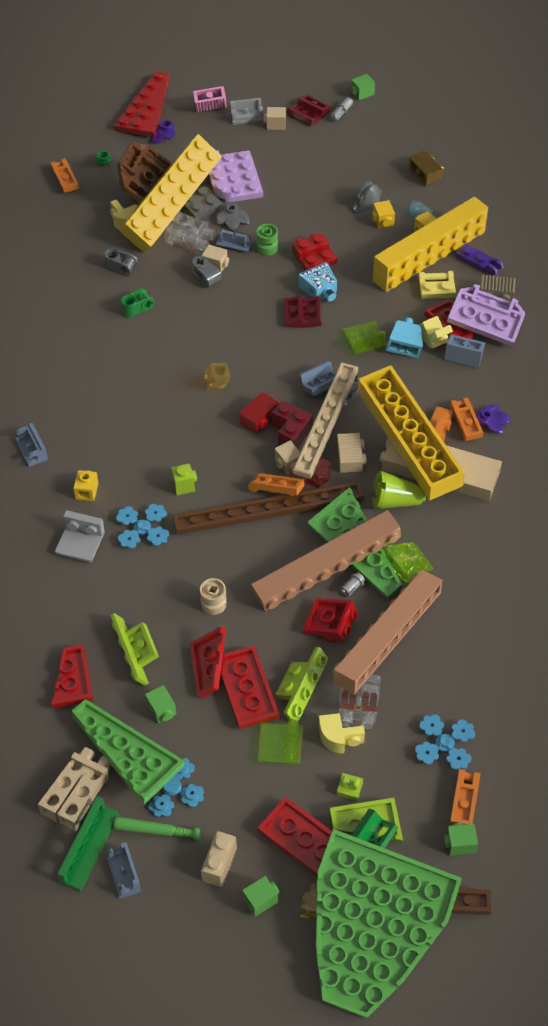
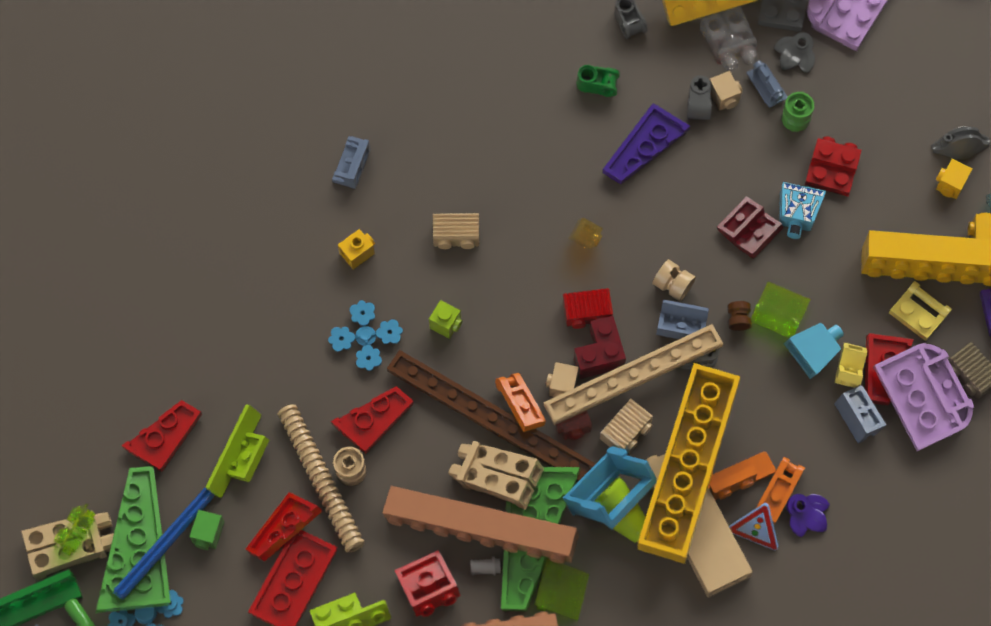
camera: 45 degrees right, 15 degrees up
(75, 767) = (76, 516): none -> clear neon green hinge
(80, 536) = (298, 301): light grey bracket -> none
(137, 431) = (456, 230): none -> tan brick
(143, 732) = (162, 544): none -> blue axle
(197, 563) = (373, 420): none -> red wing
(198, 313) = (646, 141): none -> dark purple wing
(200, 618) = (321, 479): none -> tan piece
(293, 362) = (674, 280): none -> tan wheel
(304, 528) = (497, 473): none -> tan hips
(347, 354) = (739, 315): none -> reddish brown wheel
(365, 472) = (600, 476): none -> dark azure piece
(478, 441) = (757, 527): none -> piece

